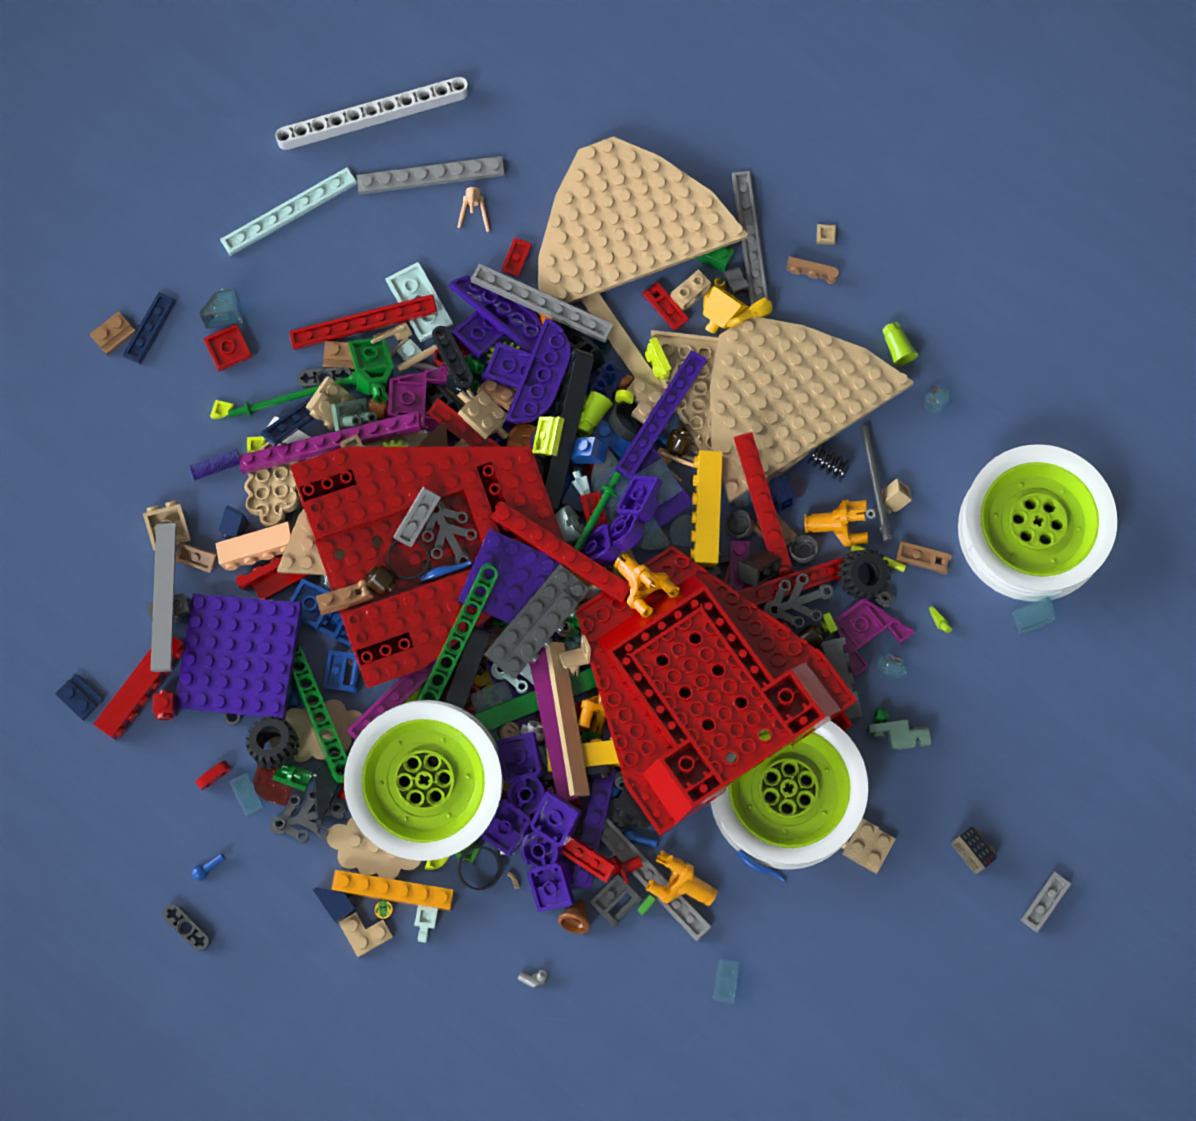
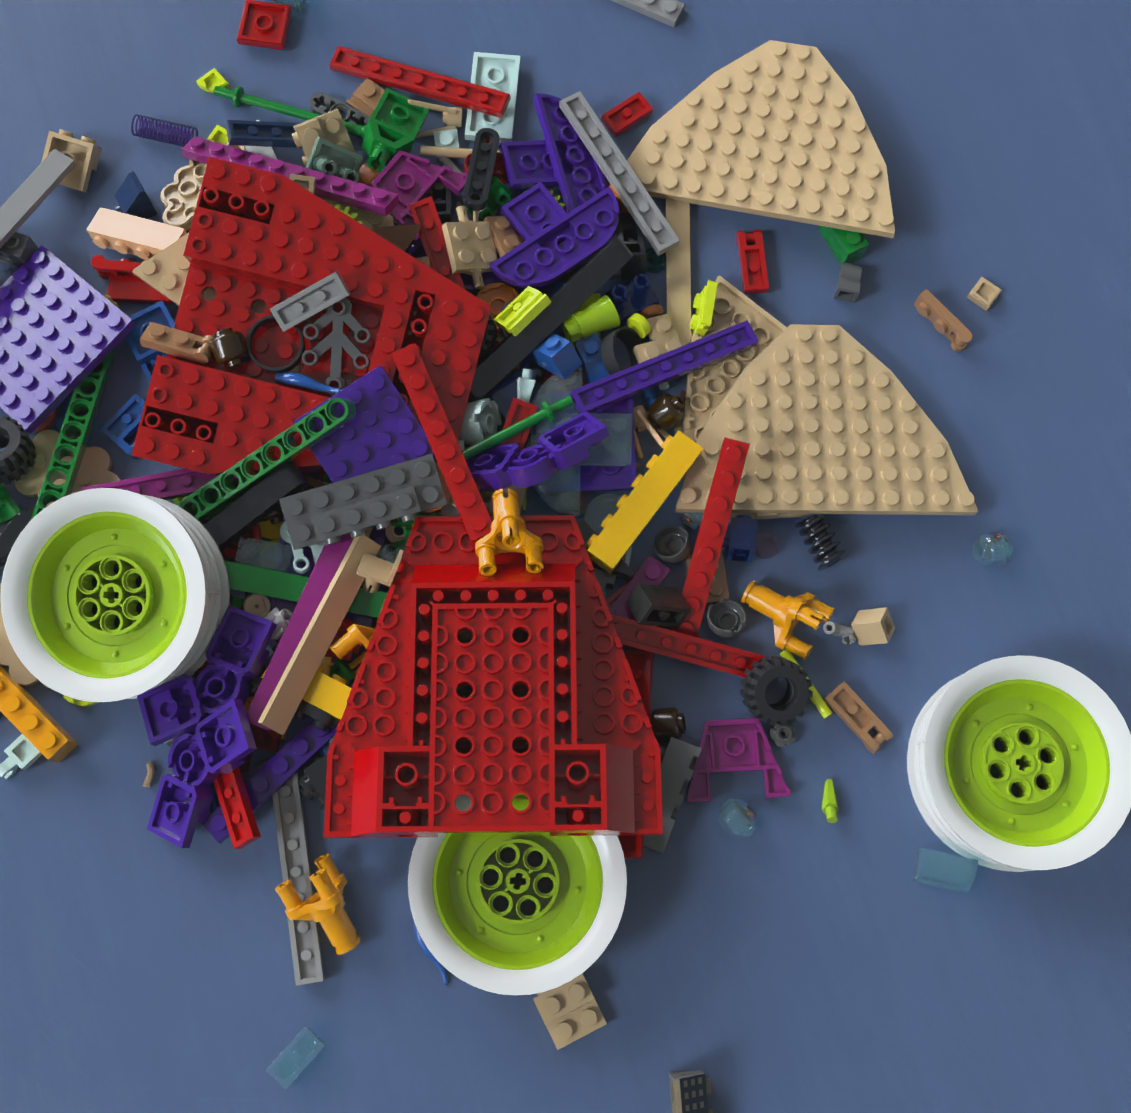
camera: 30 degrees right, 0 degrees up
(196, 557) = (73, 210): medium nougat plate -> none
(471, 856) = (123, 710): bright green tile -> none
(473, 198) = (623, 29): light nougat plant -> none
(498, 871) = (90, 736): black tyre -> none
(534, 980) = (88, 904): light grey arm -> none
(575, 919) = (182, 864): dark orange hat -> none
(610, 896) = (236, 867): dark grey plate -> none
(627, 866) = (271, 845): red bracket -> none
(633, 837) = (311, 814): blue bar -> none
(647, 904) = (268, 905): bright green tile -> none
(691, 290) = (791, 260): tan brick -> none
(727, 310) = (818, 306): yellow torso -> none
(751, 246) = (893, 251): light grey tile -> none
(794, 601) = (674, 671): dark grey plant -> none
(828, 625) = (695, 721): lime plate -> none
(881, 715) = (686, 867): green plate -> none
(885, 527) = (835, 654): dark grey bar -> none
(899, 345) = (988, 461): lime plant -> none
(900, 735) = (694, 905): sand green plate -> none

